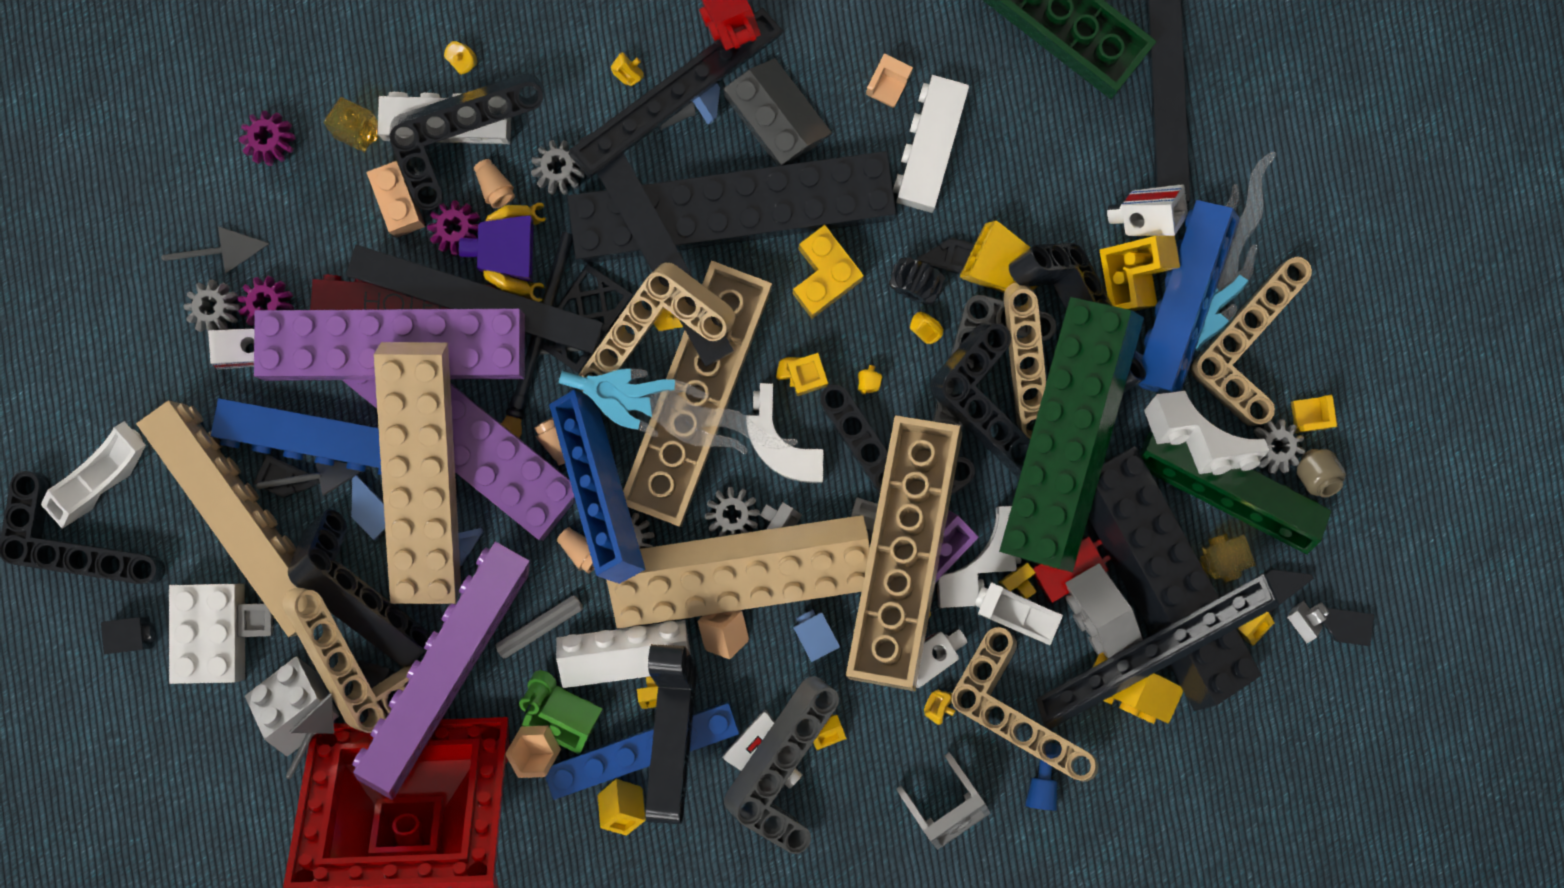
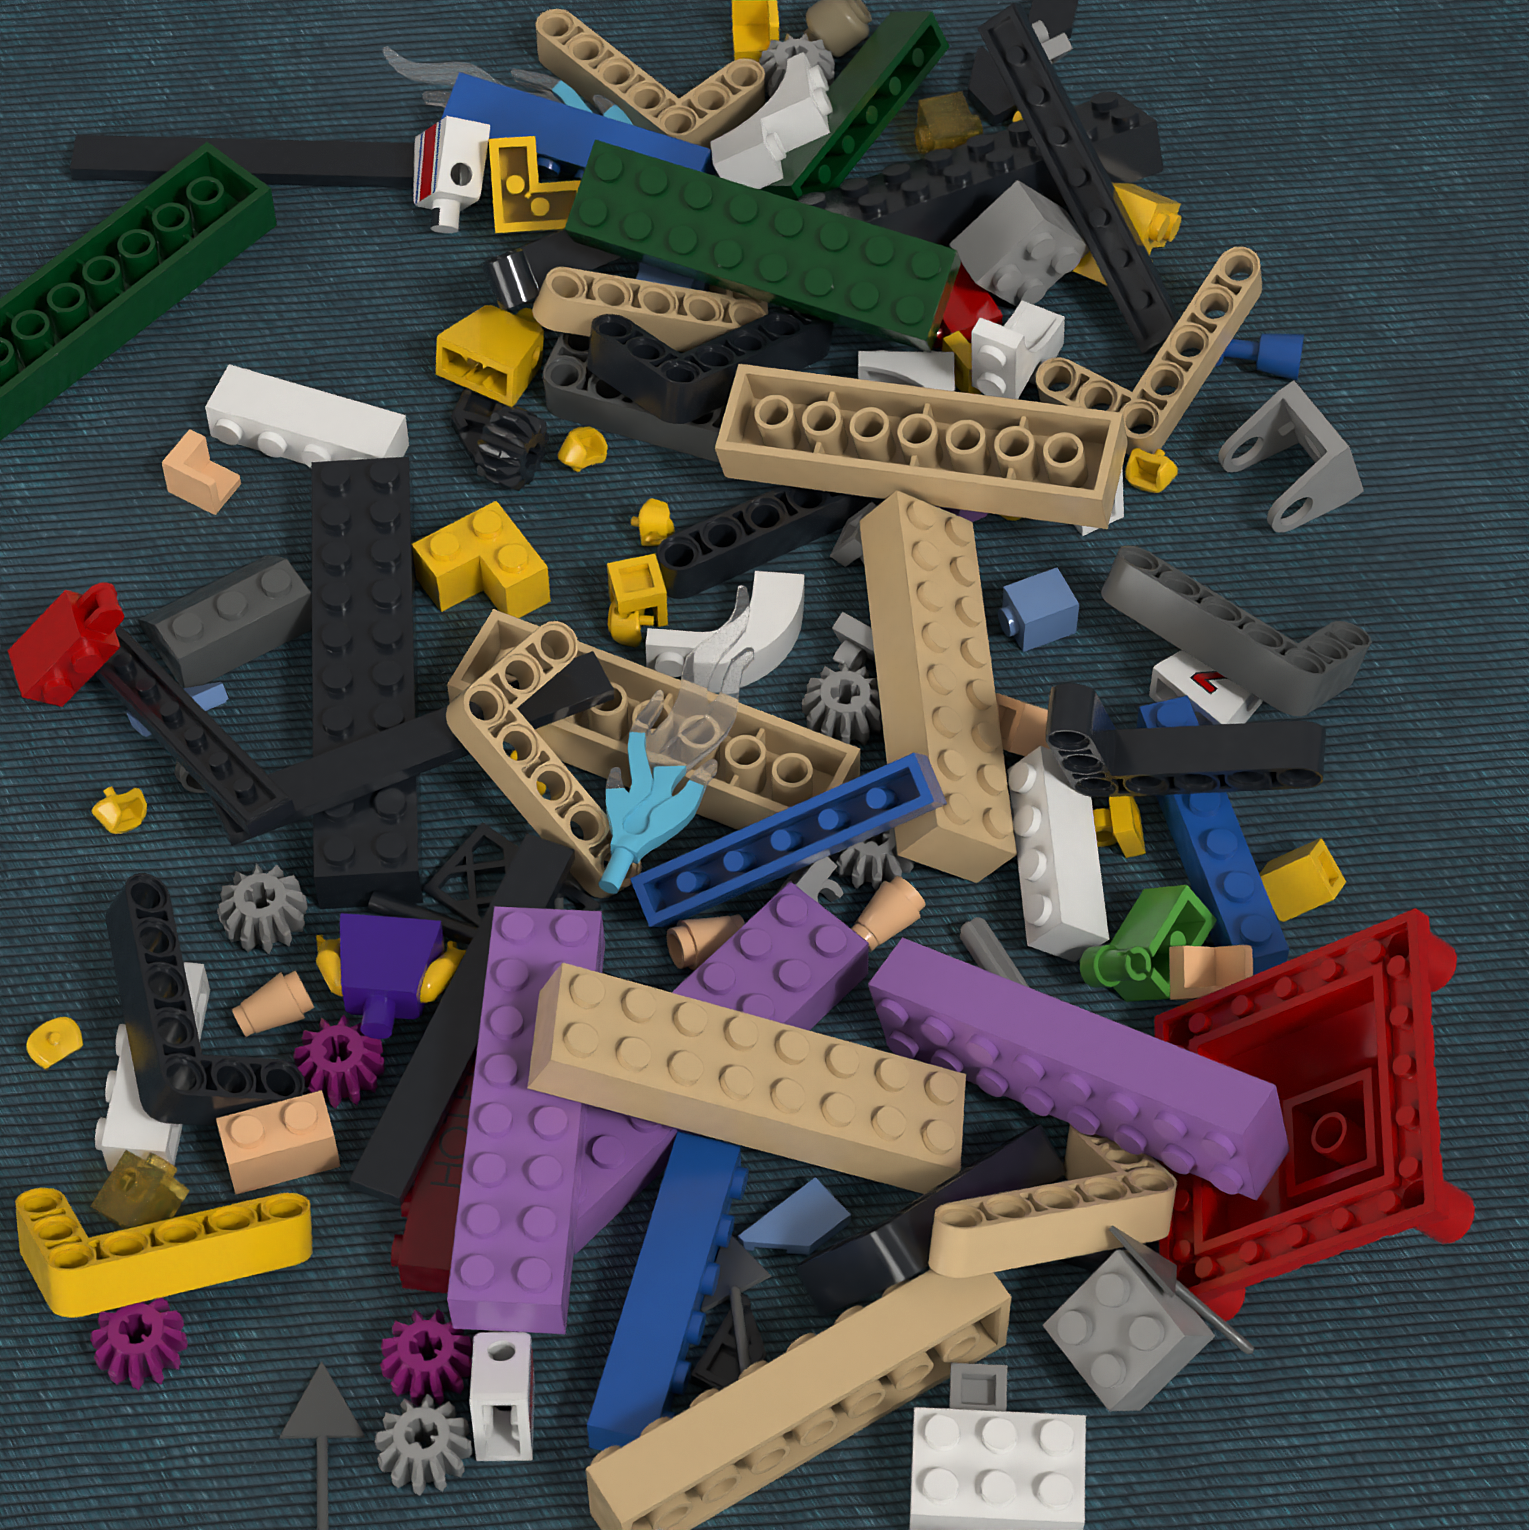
camera: 85 degrees left, 30 degrees down
(309, 135) = (156, 1258): none -> yellow beam

